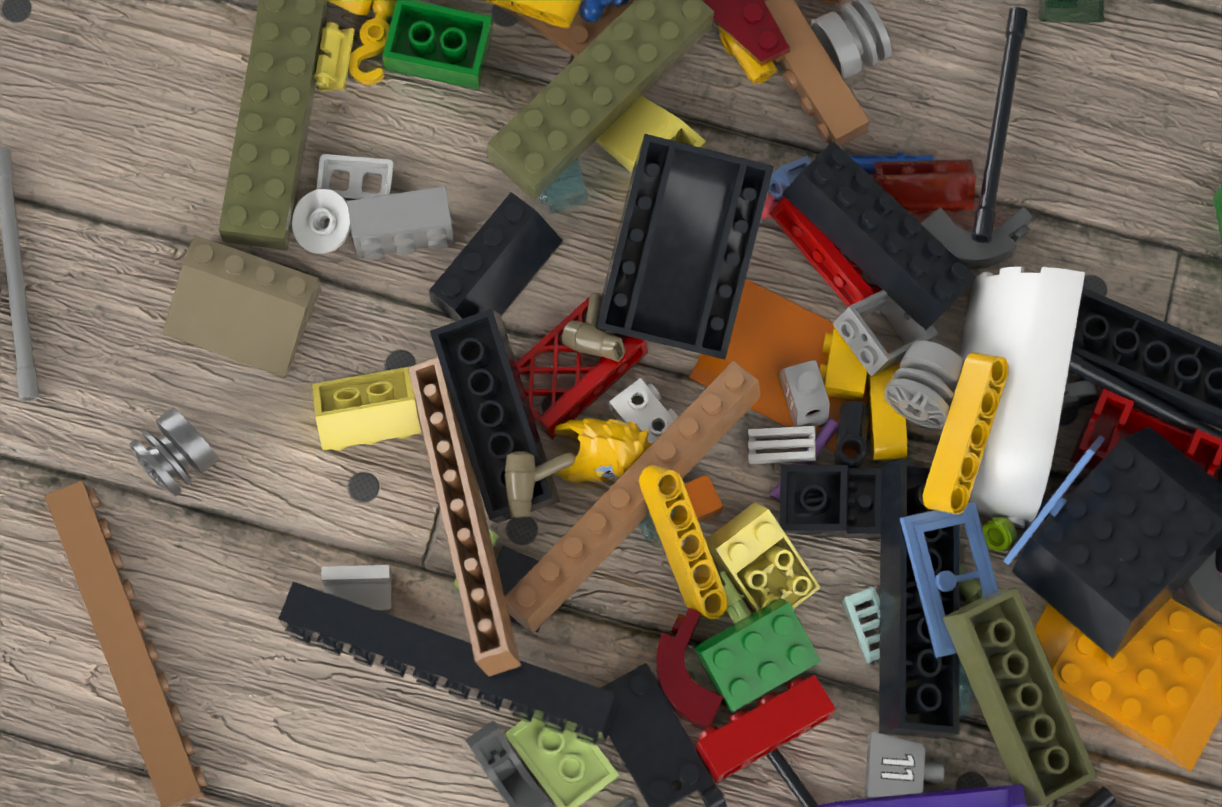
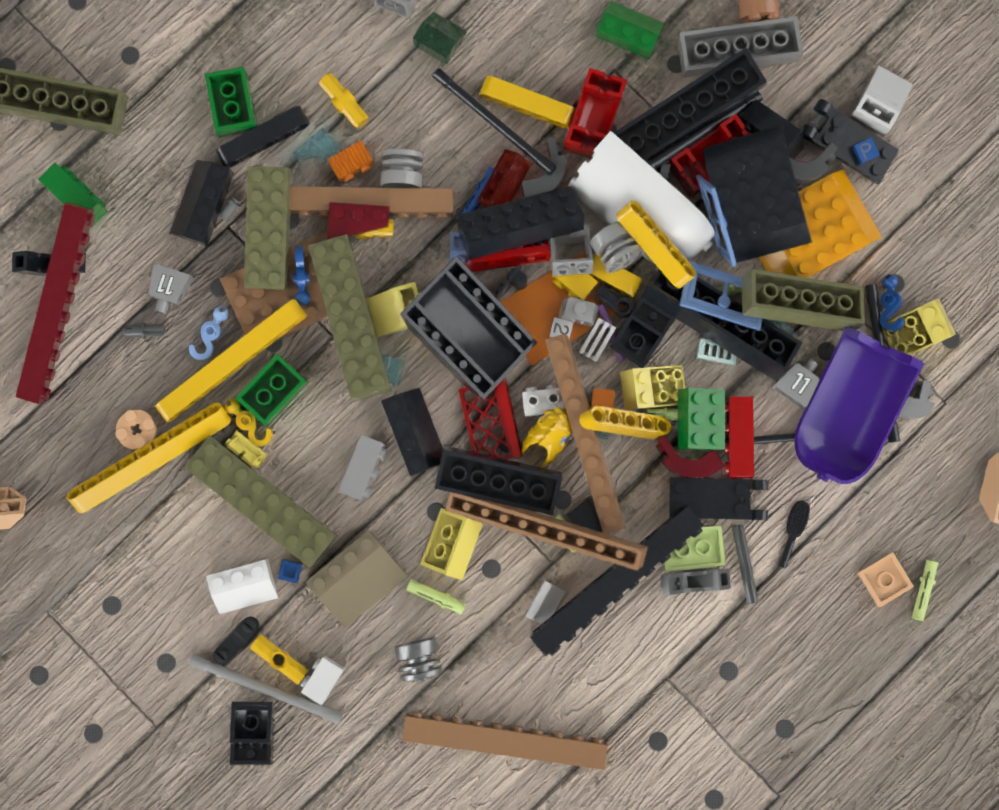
camera: 60 degrees left, 10 degrees up
(60, 195) = (236, 640): none -> black piece
(64, 286) = (268, 651): none -> yellow piece
(70, 339) = (322, 680): none -> white brick
(141, 160) = (242, 586): none -> white slope
(199, 213) = (290, 571): none -> blue tile
(277, 422) = (435, 596): none -> yellowish green pin
(310, 218) = (331, 516): white dish -> none
(357, 168) = (314, 473): white piece -> none
(523, 474) = (543, 487): dark tan piece -> none
(588, 339) = (483, 408): dark tan piece -> none
(770, 386) = (561, 327): none -> white tile
(796, 272) = (514, 277): none -> black hinge
(999, 533) = (709, 257): lime tile -> none
(1058, 155) = (527, 102): none -> yellow beam
(1110, 251) = (594, 112): none -> red piece

